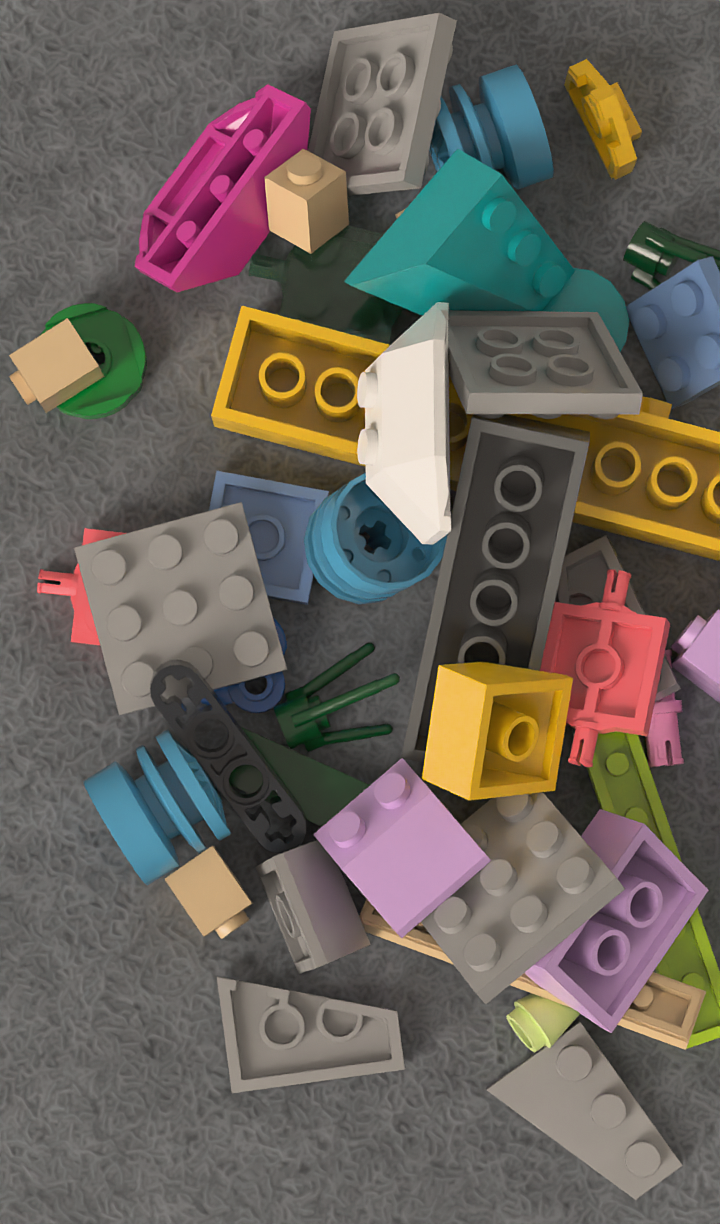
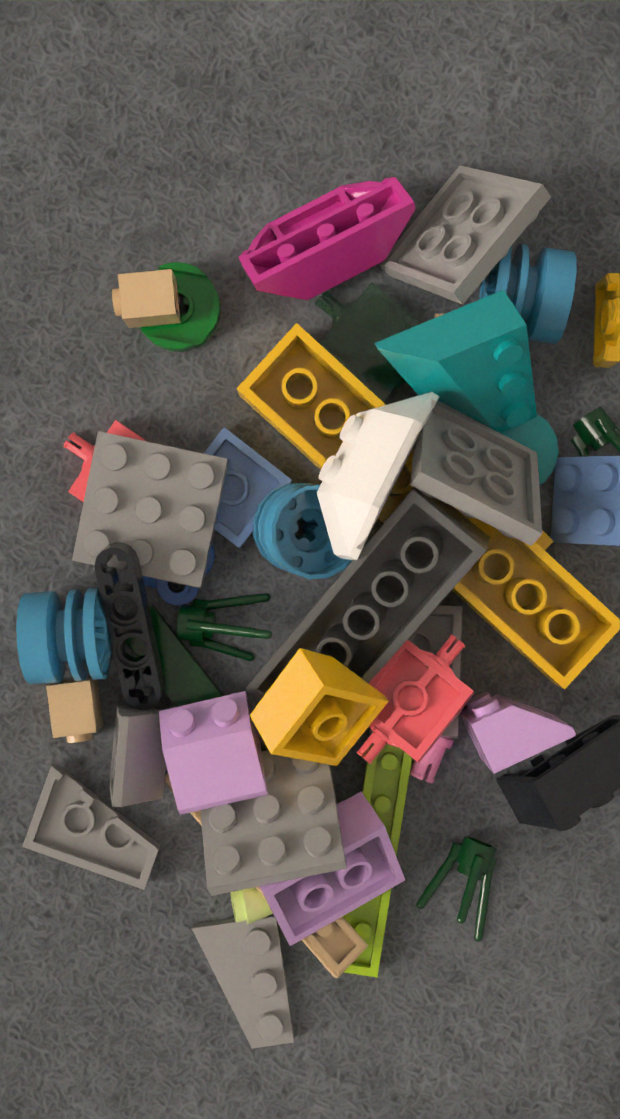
camera: 30 degrees right, 5 degrees up
(307, 200) = (379, 272): tan brick -> none

